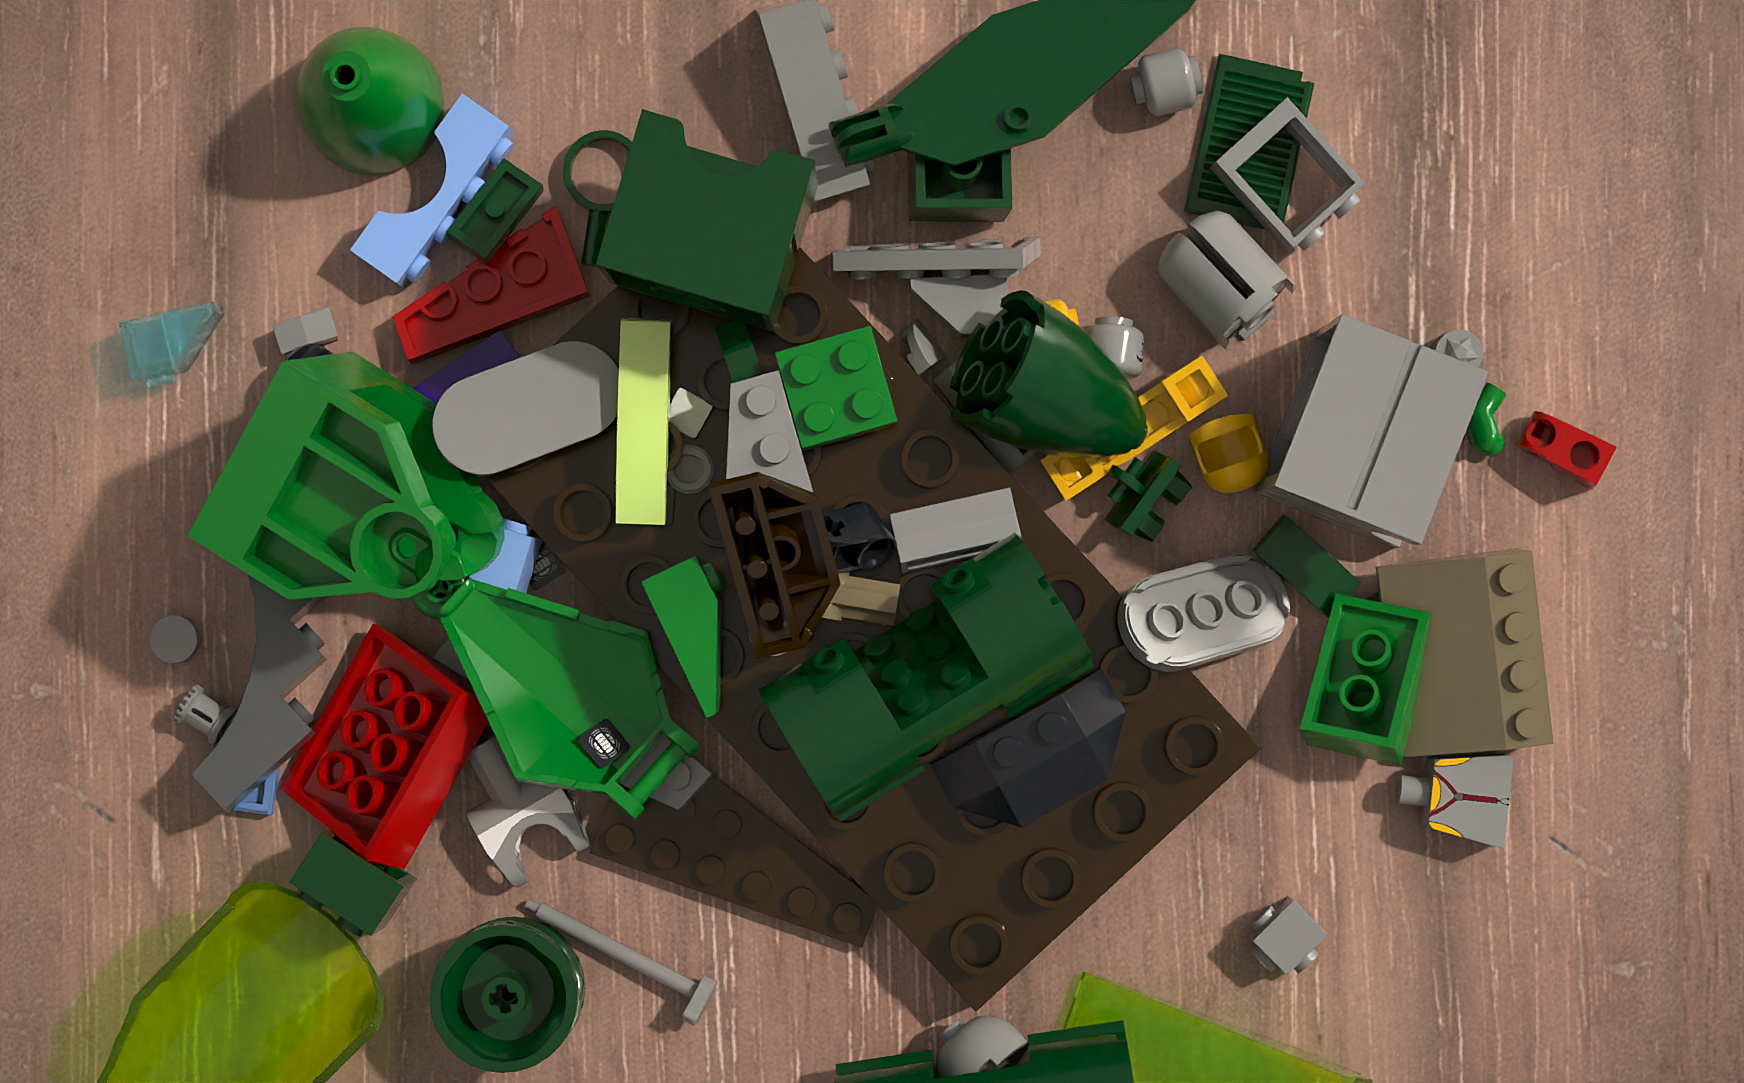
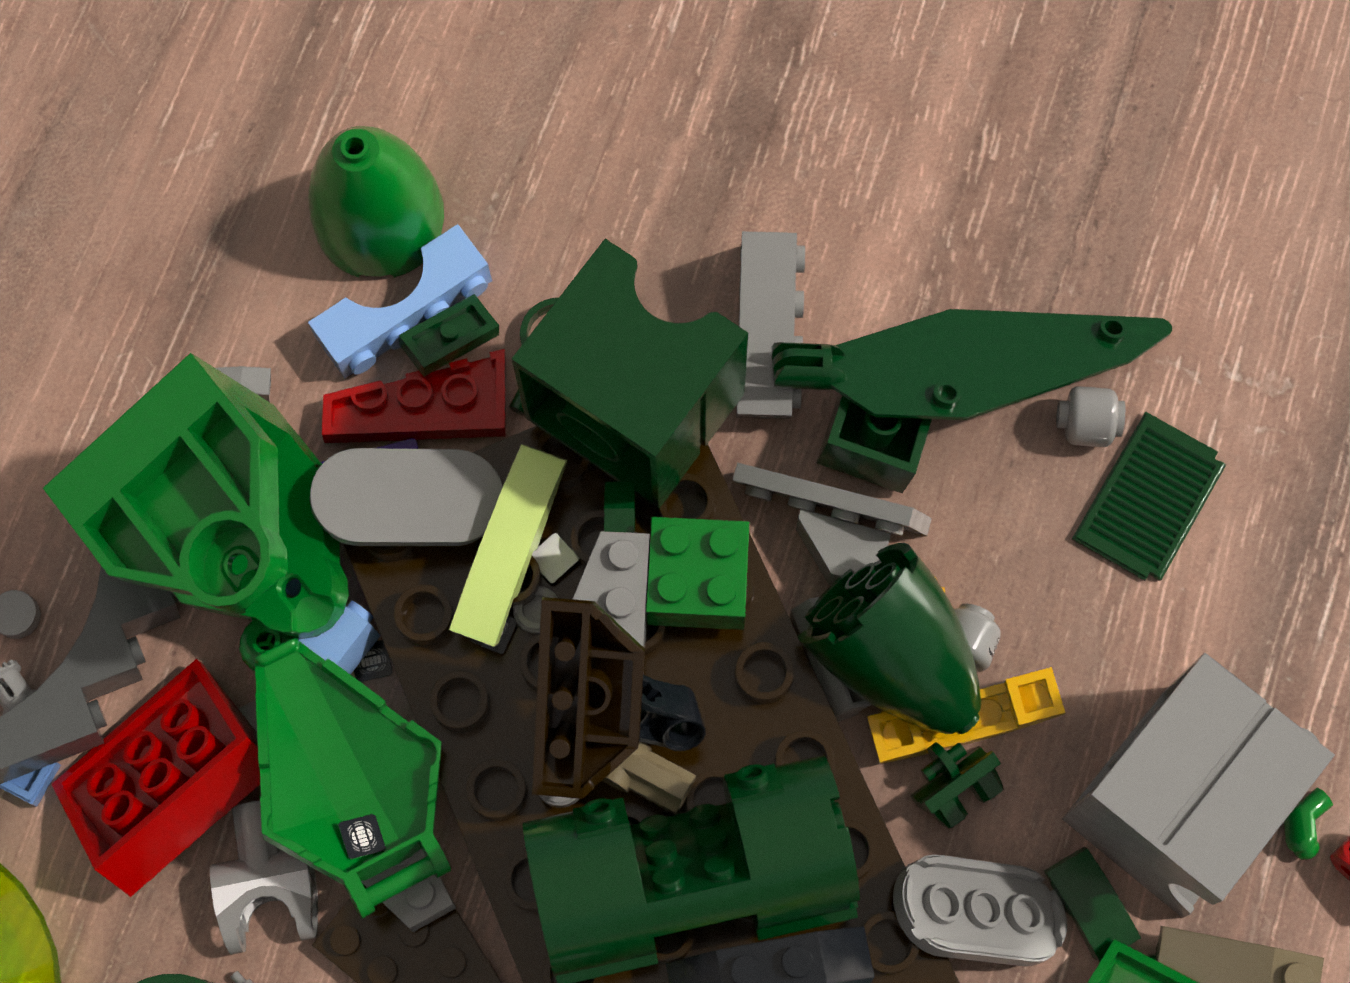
camera: 20 degrees right, 15 degrees down
(167, 342) = (120, 352): clear light blue slope -> none
(349, 885) = (78, 900): dark green brick -> none
(692, 619) = (486, 734): green slope -> none
(924, 350) = (791, 582): light grey tile -> none
(953, 529) = (761, 738): light grey piece -> none
(1222, 276) = (1093, 604): light grey cylinder -> none
(1231, 453) = (1051, 767): yellow helmet -> none
(1290, 117) = (1214, 515): light grey window -> none

